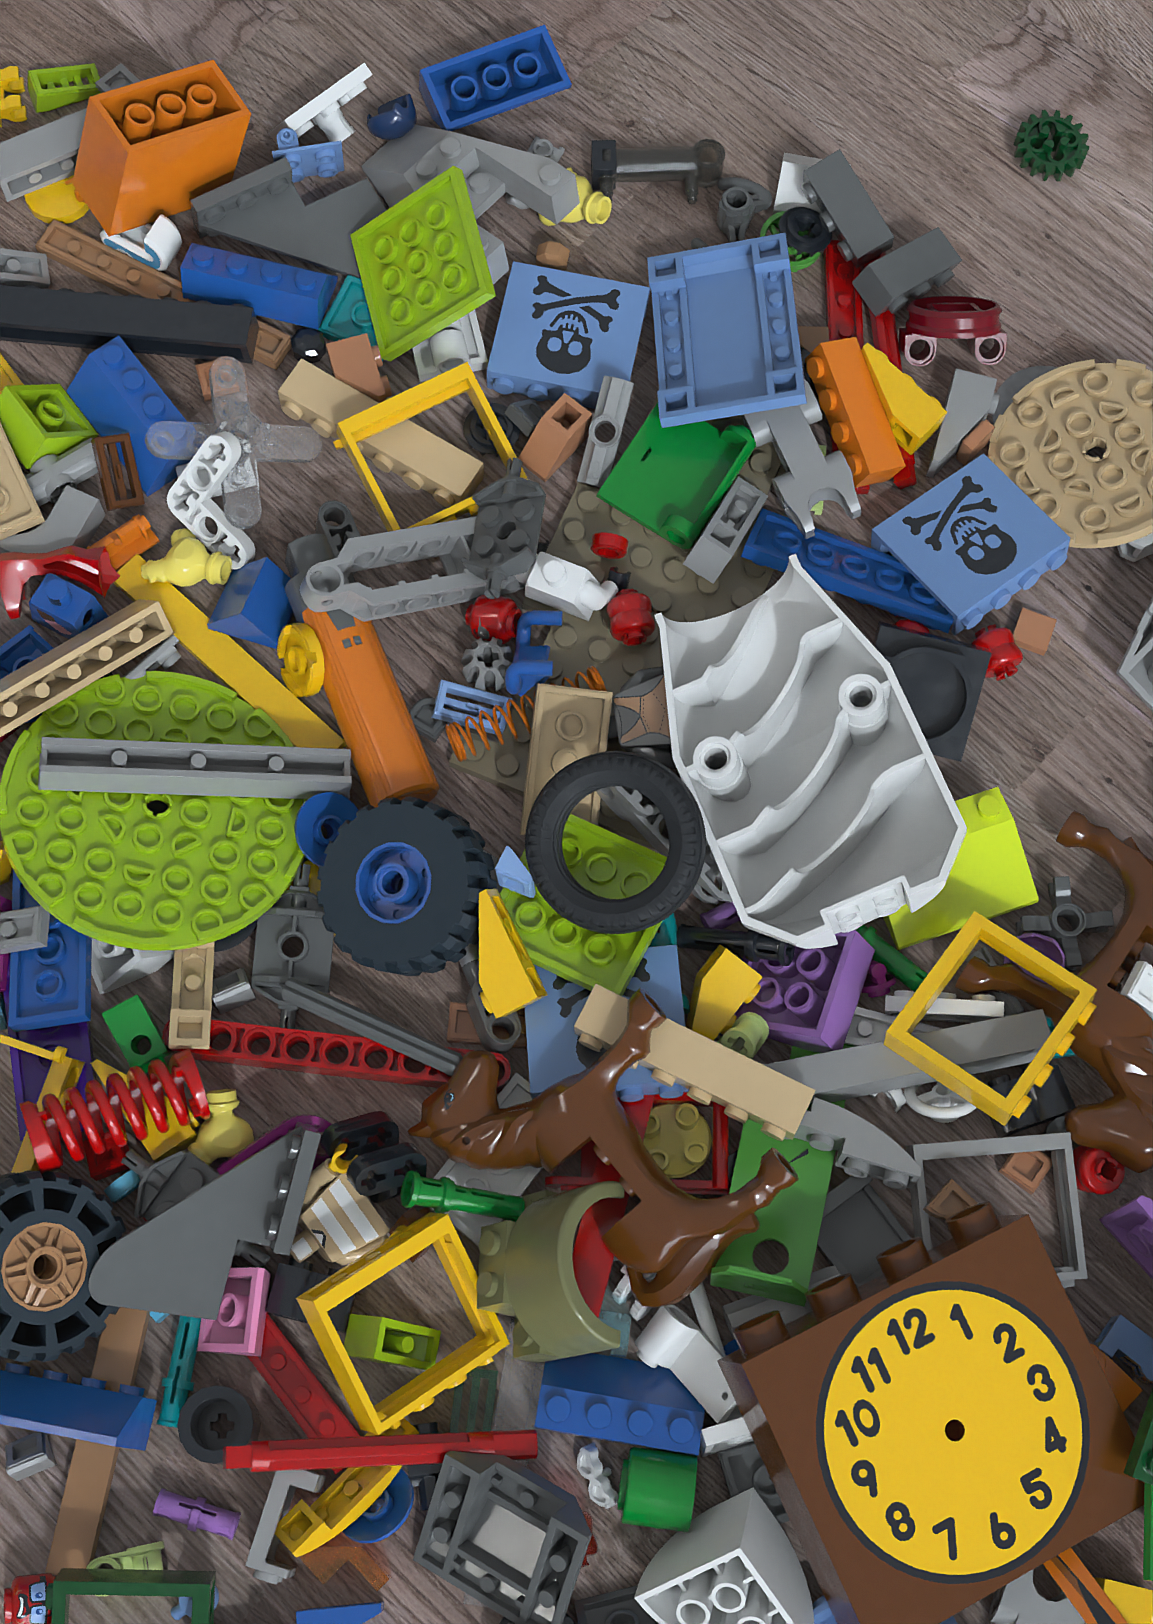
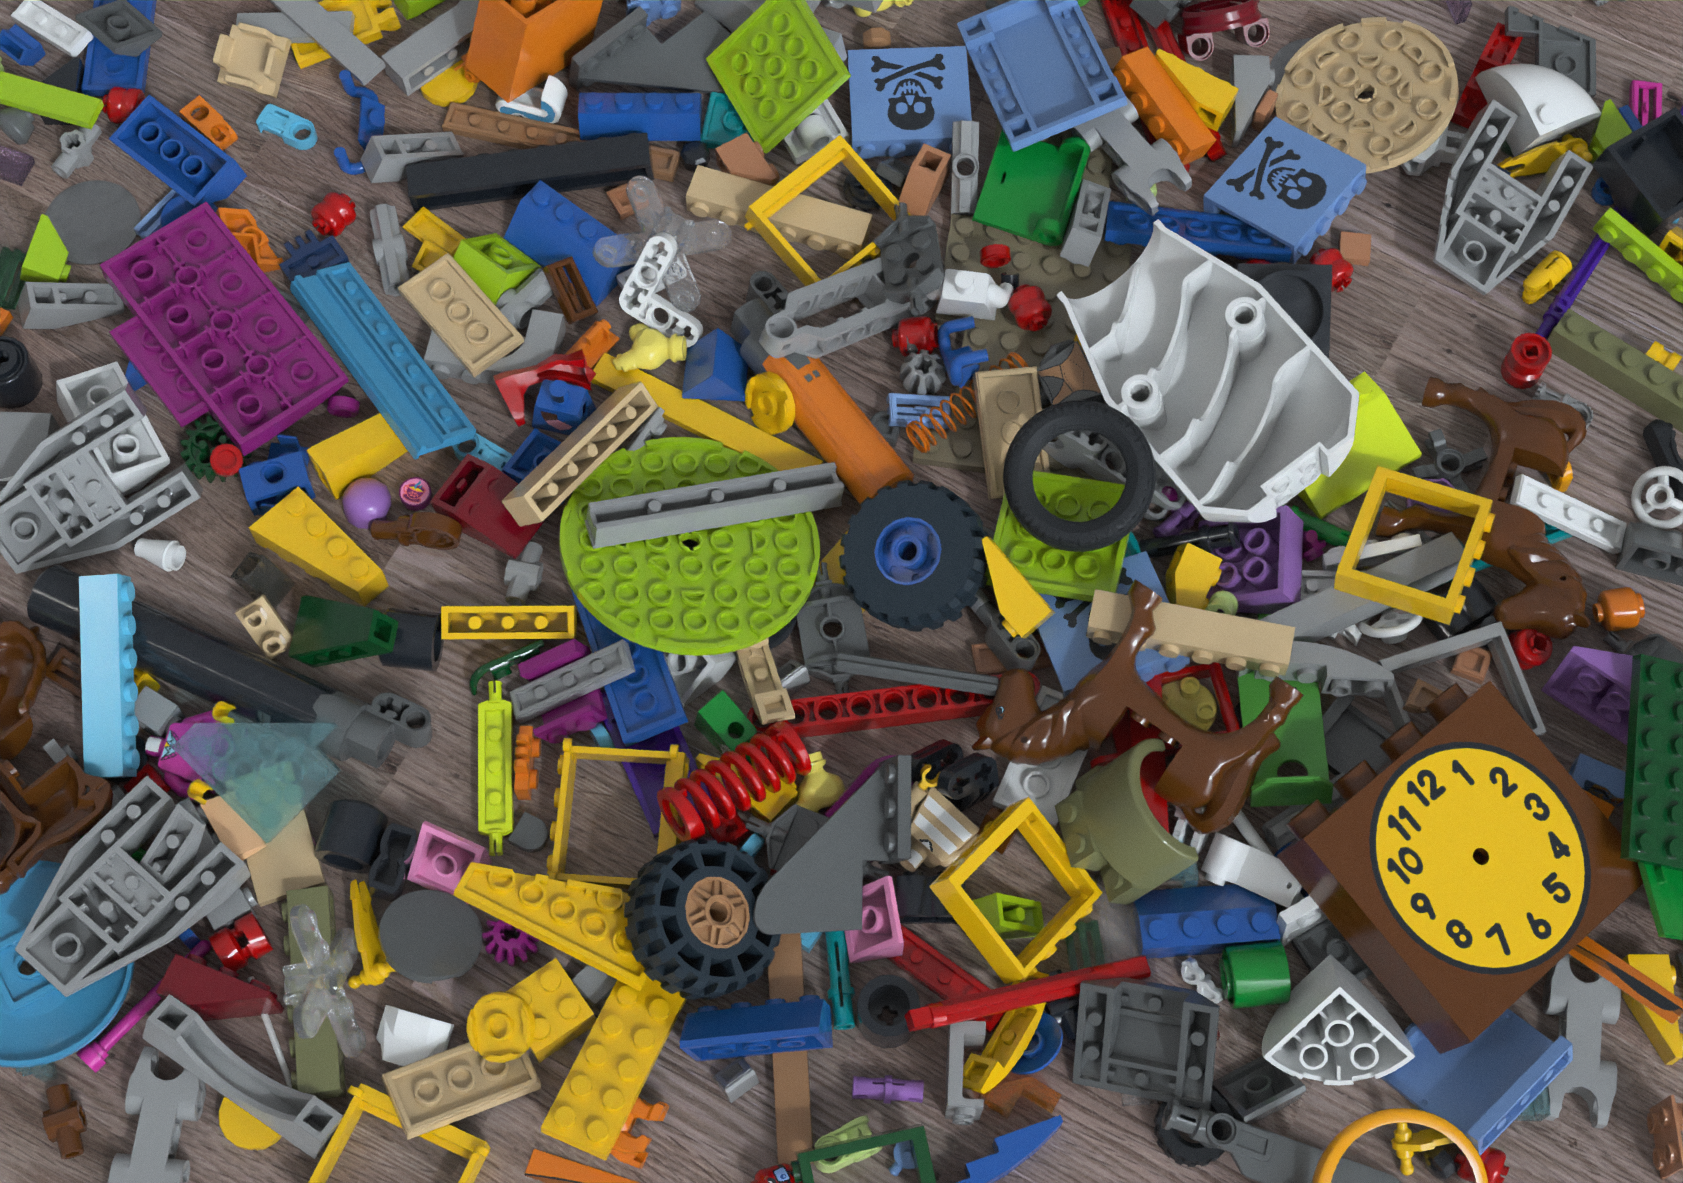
camera: 10 degrees left, 5 degrees down
(320, 810) = (826, 526): blue dish -> none
(446, 1196) = (1019, 786): green pin -> none
(514, 875) = (1002, 524): light blue slope -> none

